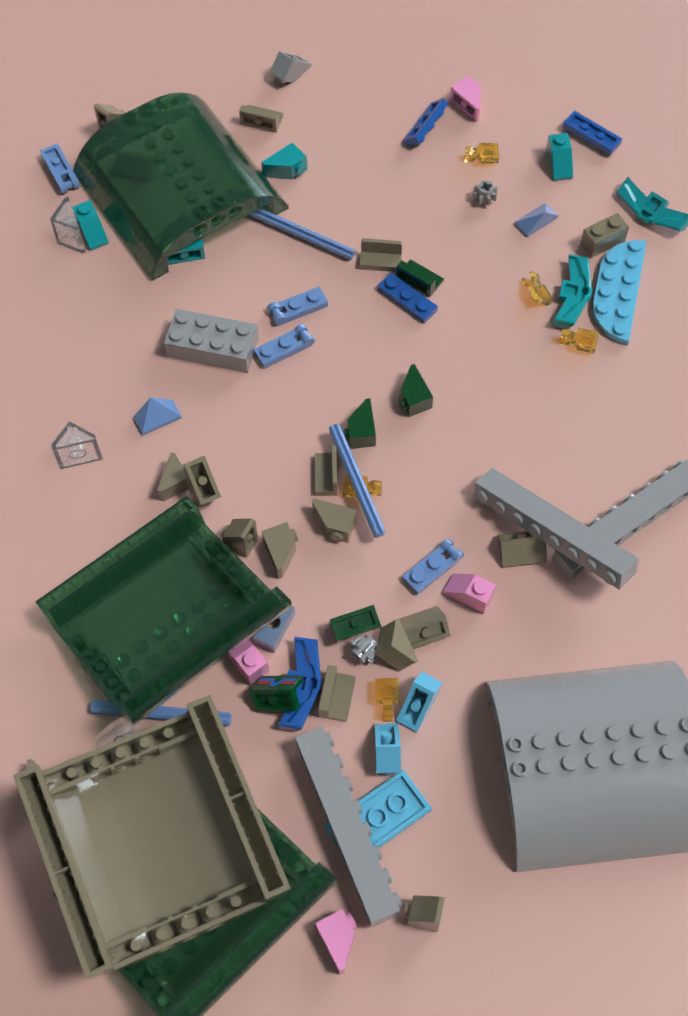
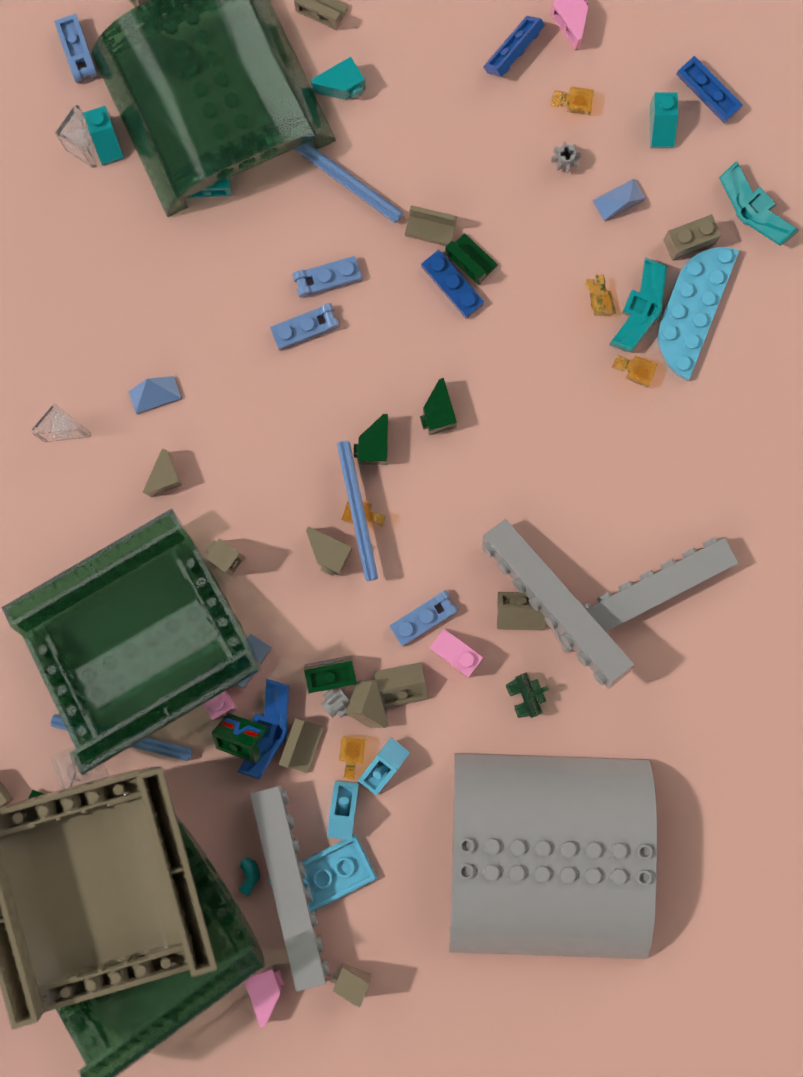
camera: 10 degrees right, 20 degrees up
(200, 481) = (190, 492): dark tan slope -> none
(211, 340) = (224, 310): light grey brick -> none
(280, 546) = (266, 573): dark tan slope -> none
(307, 825) = (251, 875): none -> teal arm
(326, 473) = (327, 492): dark tan panel -> none
(535, 610) = (529, 693): none -> clear green hips

